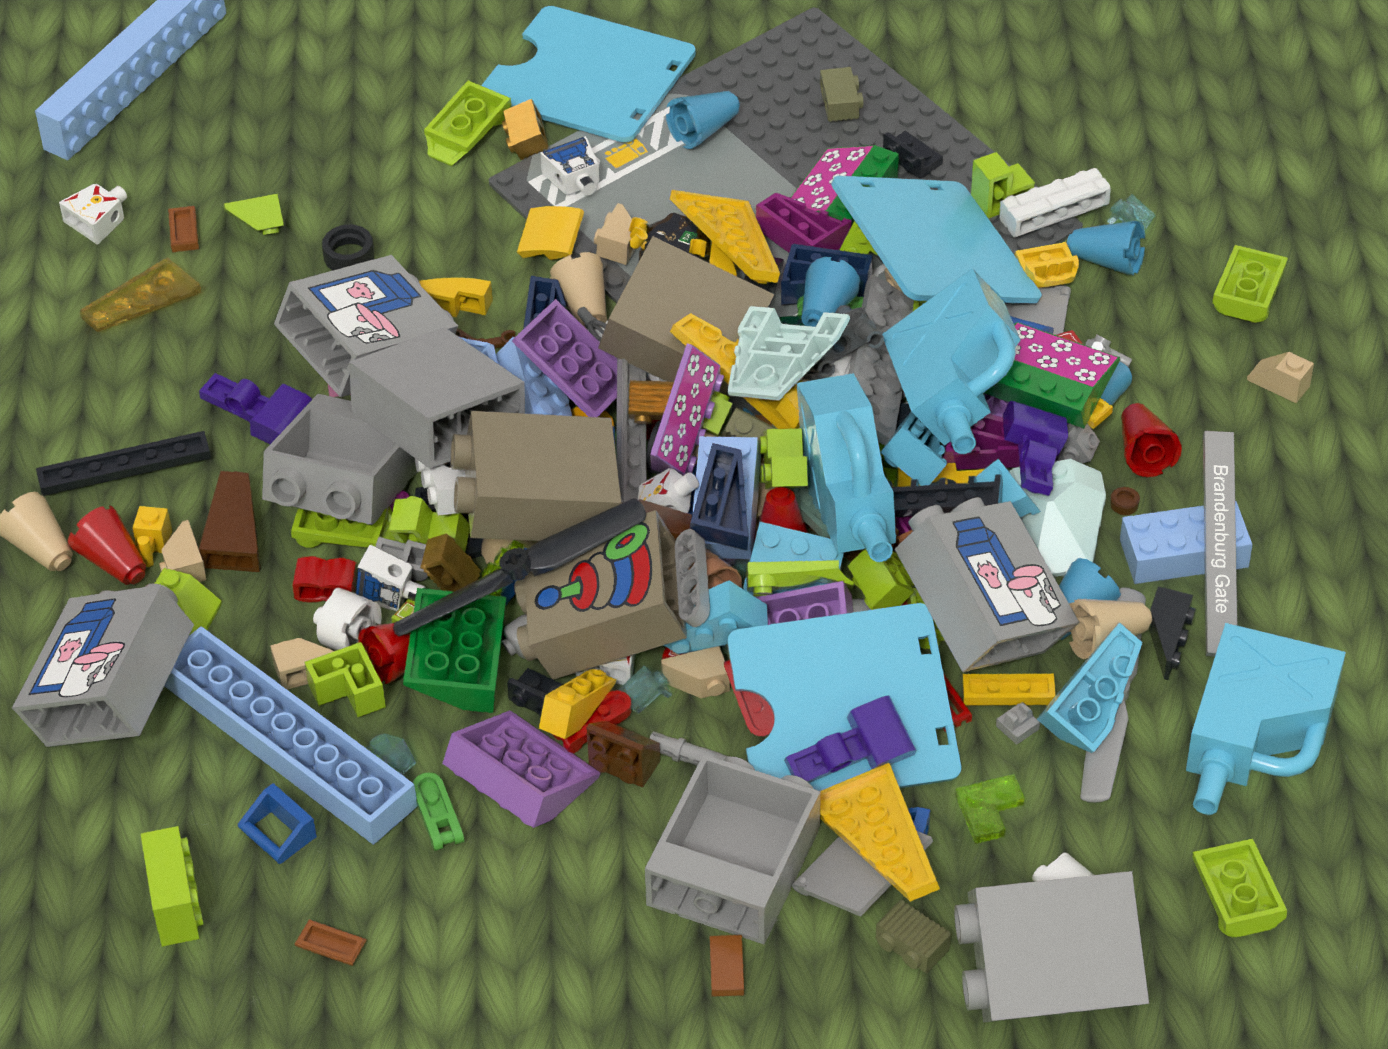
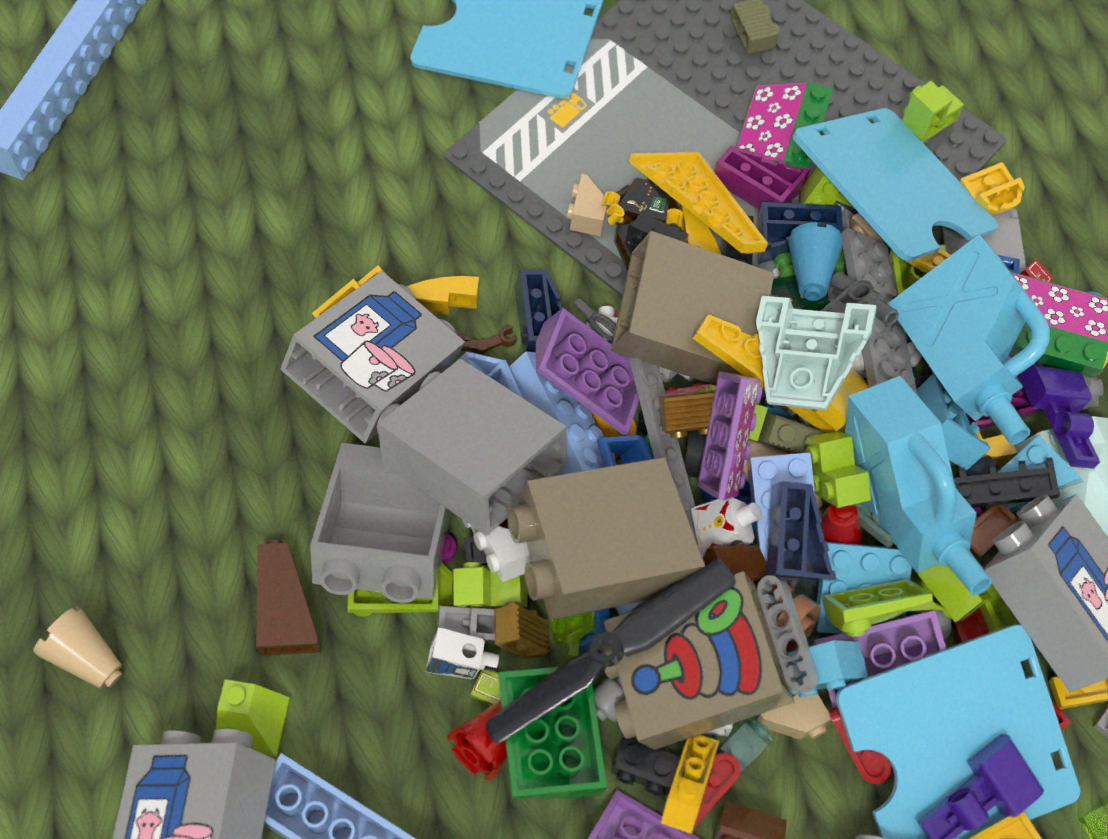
camera: 15 degrees left, 15 degrees up
(94, 211) = (62, 240): white torso -> none
(108, 545) = (161, 655): red cone -> none
(123, 463) = (151, 542): black plate -> none
(144, 293) = (132, 331): clear yellow wing -> none
(151, 531) = (200, 627): yellow brick -> none
(183, 229) = (156, 247): dark orange tile -> none
(183, 553) = (238, 653): tan slope -> none
(258, 213) = (228, 222): lime slope -> none
(266, 415) = (298, 464): dark purple plate -> none
(290, 659) = (391, 768): tan slope -> none
(318, 578) = (392, 658): red brick -> none
(344, 618) = (430, 716): white brick -> none
(346, 674) = (450, 780): lime brick -> none
(347, 235) = (321, 236): black tyre -> none
(464, 122) = (408, 95): lime slope -> none
(524, 129) = (468, 96): brick -> none
(550, 232) = (521, 210): yellow slope -> none
(571, 167) = (524, 134): white torso -> none
(582, 284) = (570, 272): tan cone -> none
(681, 750) = (802, 815): light grey pin -> none
(699, 116) = (632, 66): dark azure cone -> none
(913, 153) = (844, 84): black bracket -> none
(1054, 202) = (981, 121): white brick -> none
(1103, 345) = (1066, 275): light grey piece -> none
(1110, 245) = (1043, 162): dark azure cone -> none
(1131, 210) = (1048, 121): clear light blue bracket -> none

